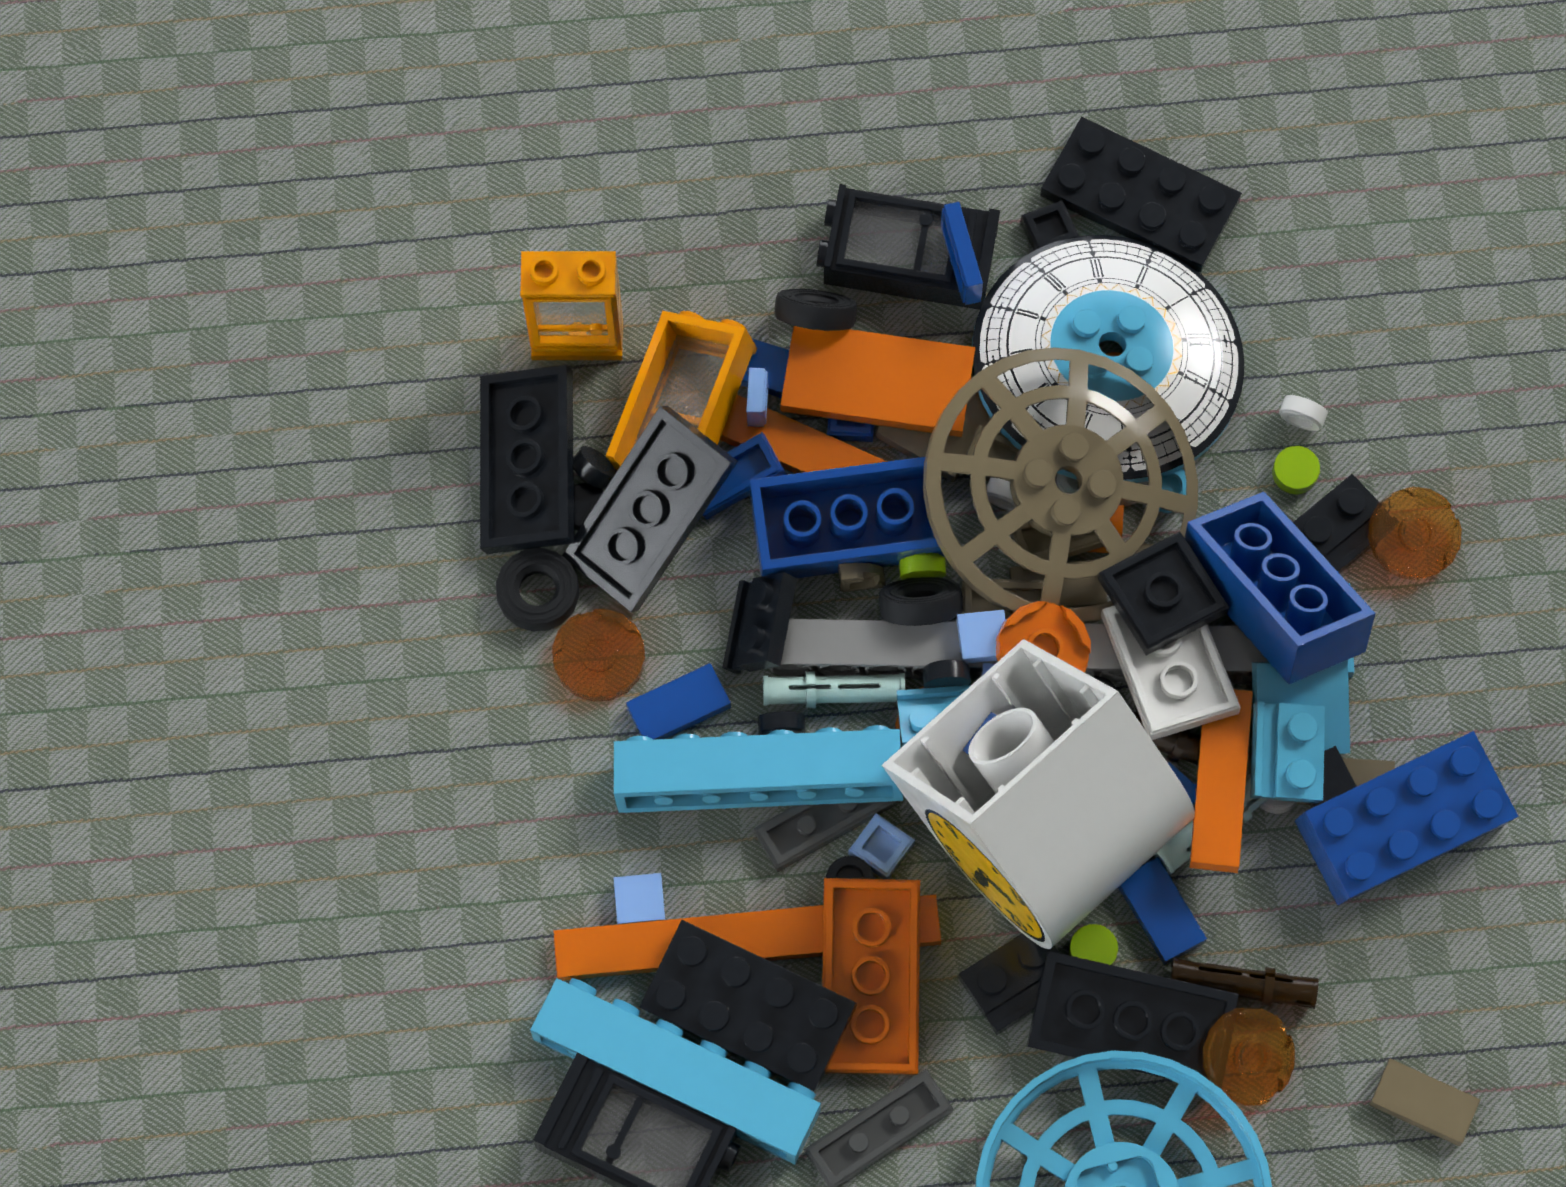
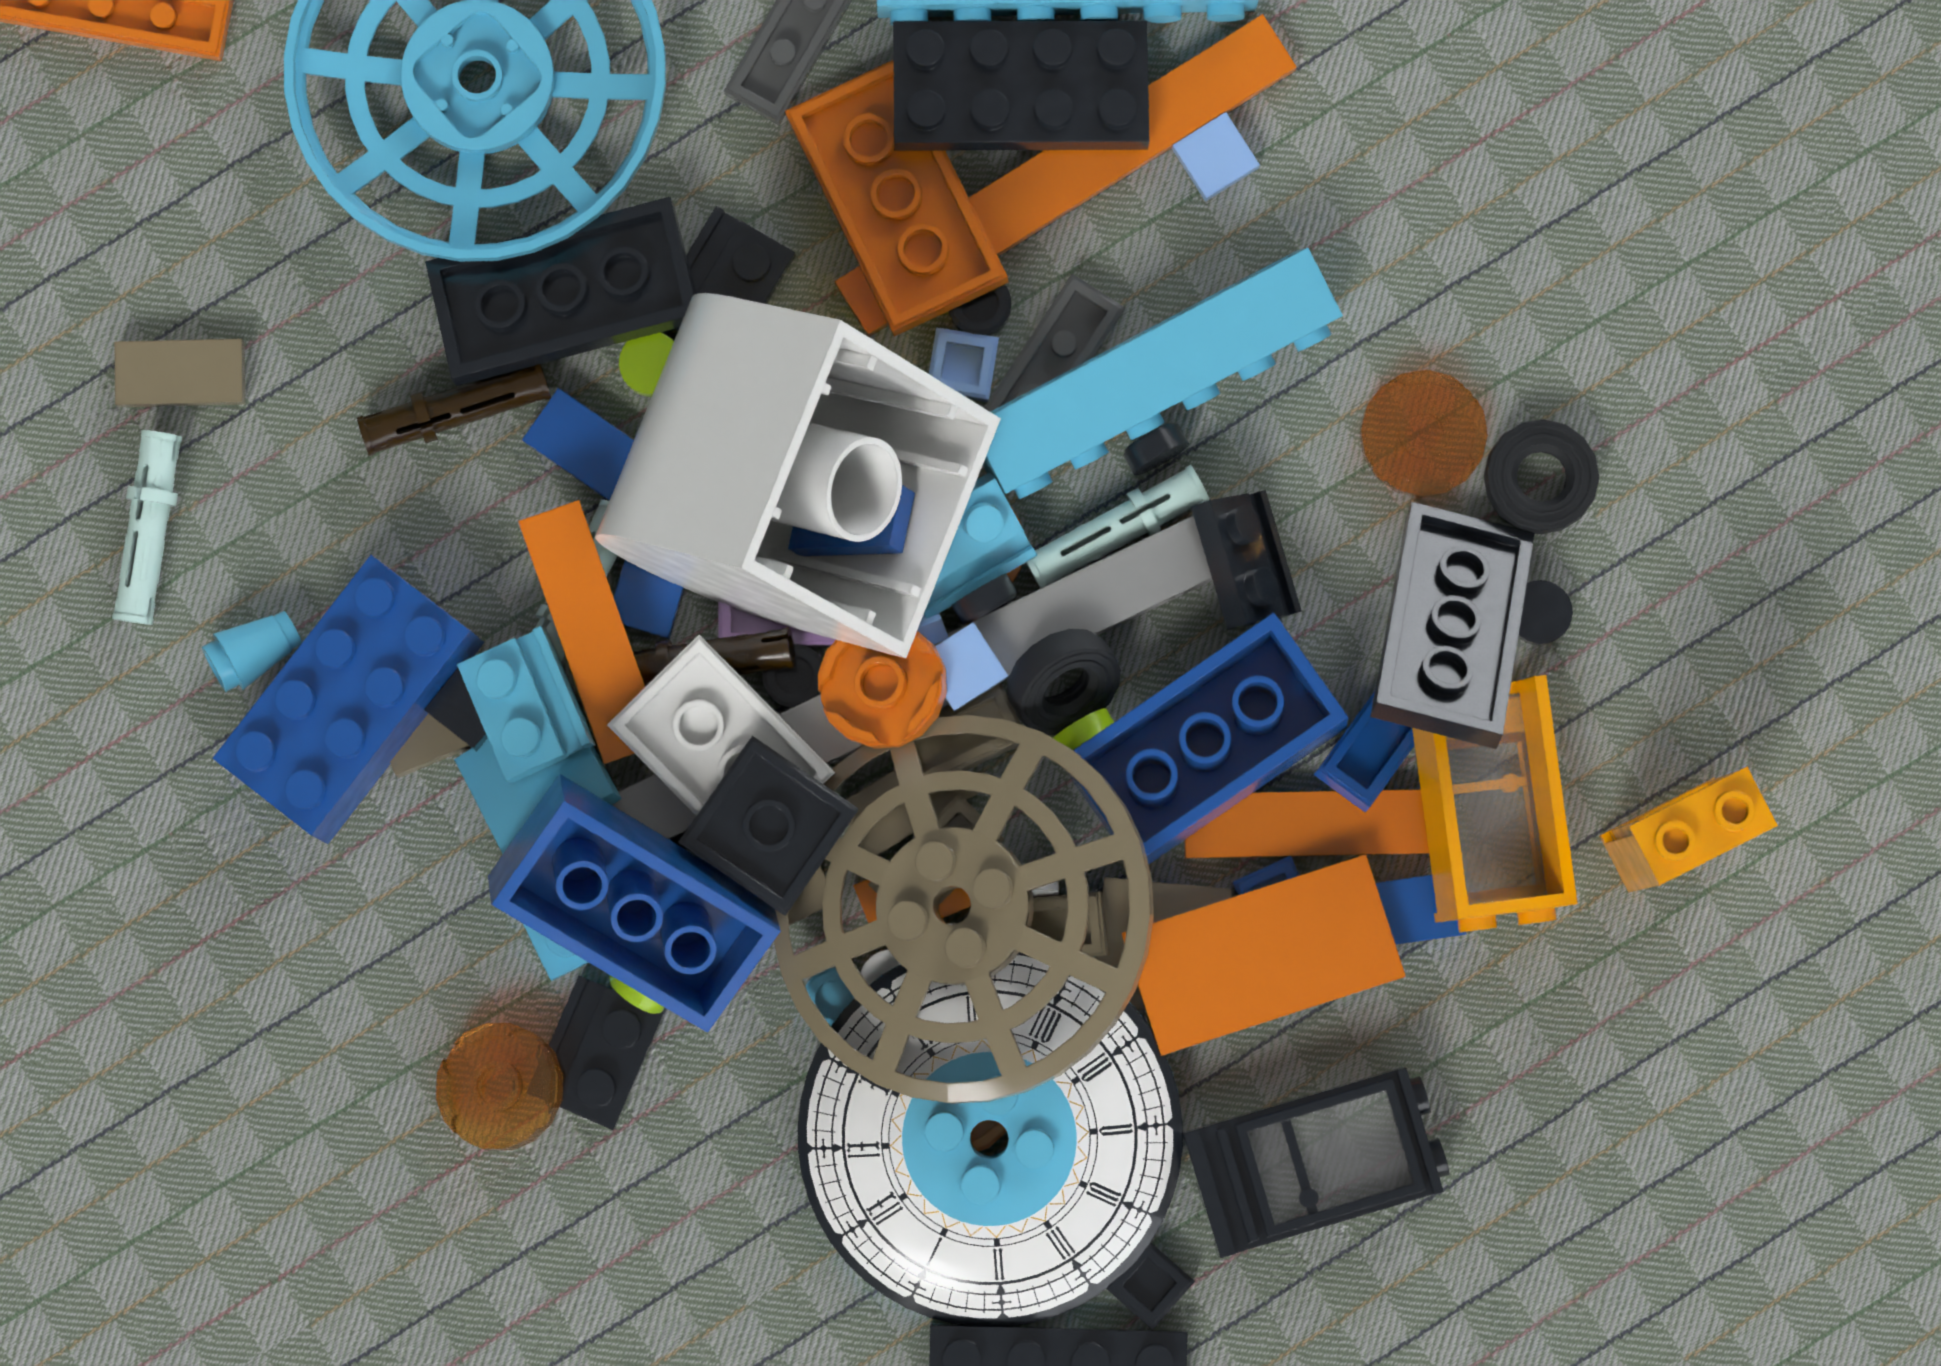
camera: 150 degrees right, 15 degrees up
(526, 459) = (1643, 630): black plate -> none
(593, 467) = (1558, 659): black tile -> none
(679, 704) = (1294, 417): blue tile -> none
(757, 397) = (1399, 848): light blue tile -> none
(815, 309) = (1379, 984): black tyre -> none
(860, 576) = (1159, 678): dark tan tile -> none
(961, 253) = (1237, 1158): blue tile -> none
(1249, 1055) = (407, 316): clear orange tile -> none
(1296, 470) = (685, 1104): lime tile -> none
(1303, 413) = (710, 1180): white tile -> none
(1458, 888) = (250, 649): none -> medium azure cone
(1484, 1021) = (147, 526): none -> light aqua pin

